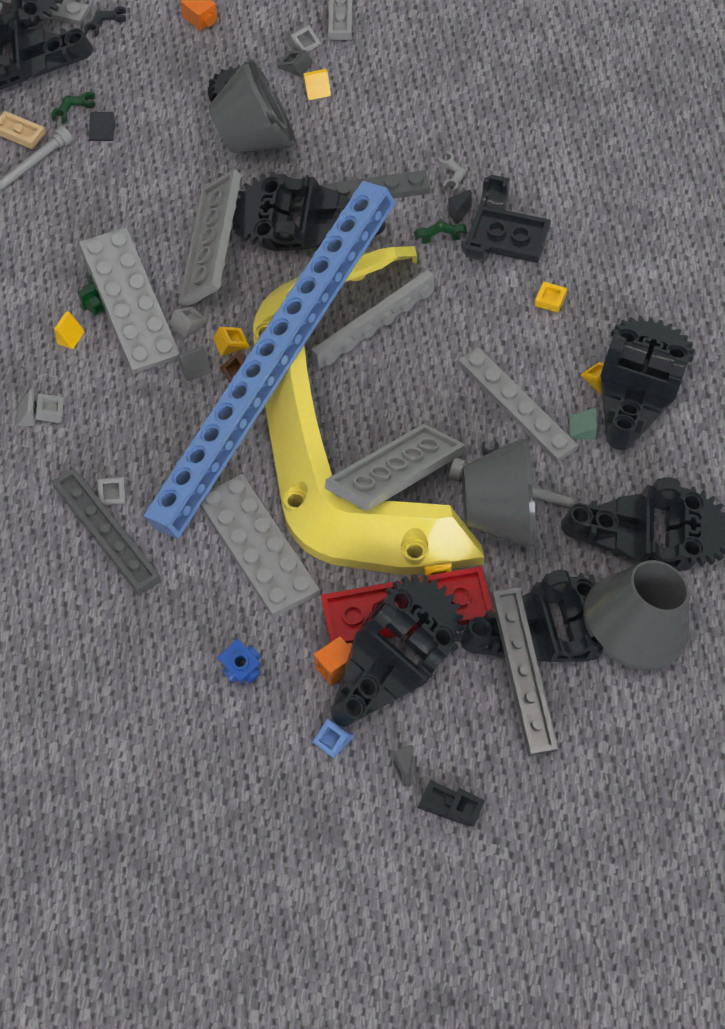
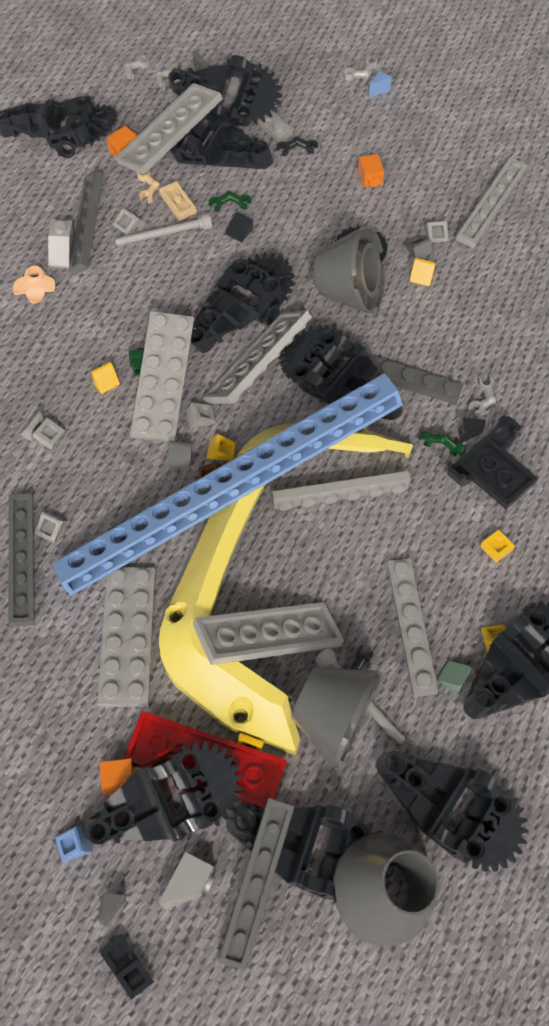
camera: 25 degrees right, 5 degrees up
(158, 208) = (226, 312): none -> black connector
(234, 655) = (41, 734): blue brick -> none
(461, 707) = (188, 882): none -> light grey slope

